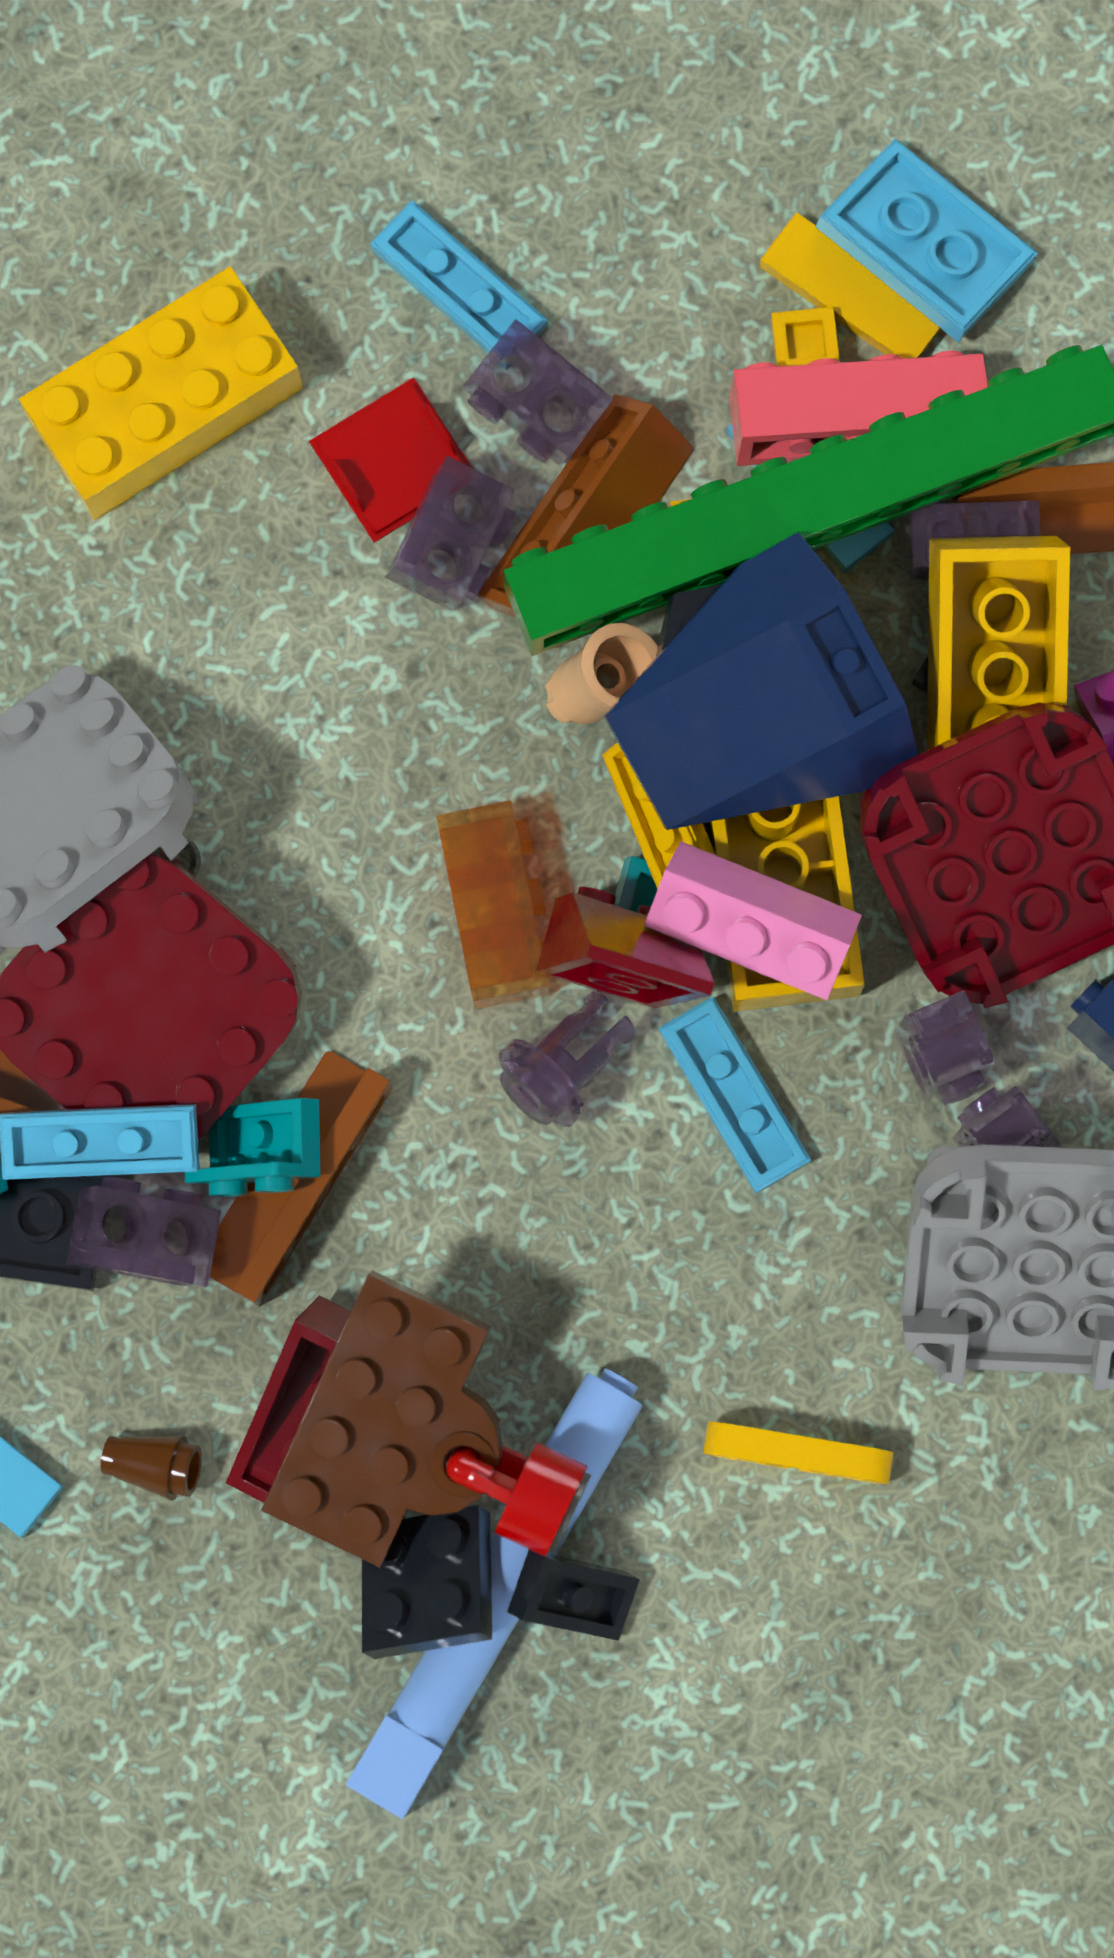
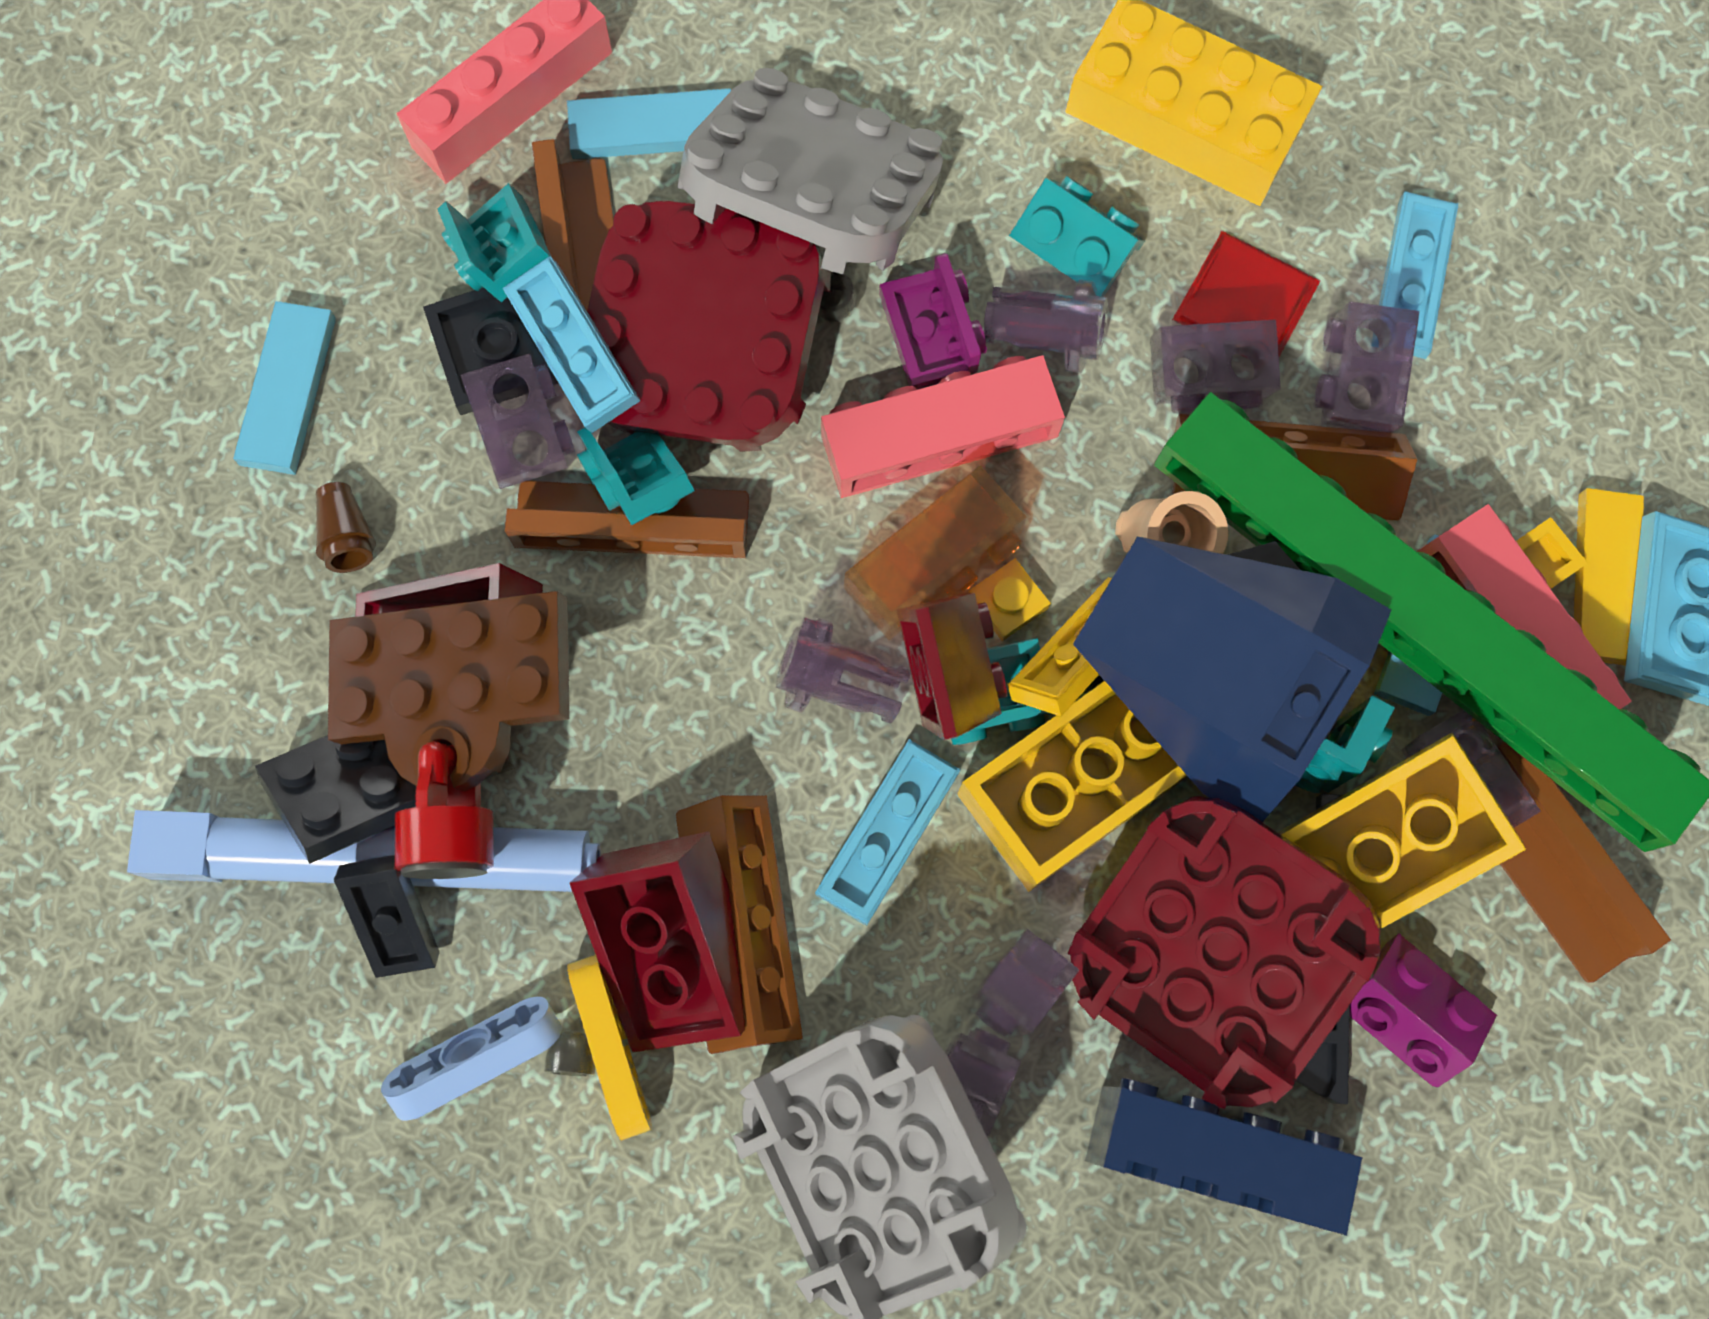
camera: 55 degrees right, 5 degrees down
(240, 584) = (1077, 235): none -> teal bracket
(261, 780) = (933, 324): none -> magenta bracket
(321, 666) = (1050, 322): none -> clear purple piece
(367, 828) = (941, 424): none -> coral brick
(572, 859) = (1011, 598): none -> yellow plate
(731, 1350) = (665, 941): none -> dark red slope
(743, 1625) = (471, 1058): none -> light blue beam
(745, 1279) = (747, 855): none -> dark orange panel
(752, 920) = (1035, 753): bright pink brick -> none
(786, 1492) = (570, 1056): none -> clear smoke hinge
(890, 625) = (1352, 743): none -> teal bracket

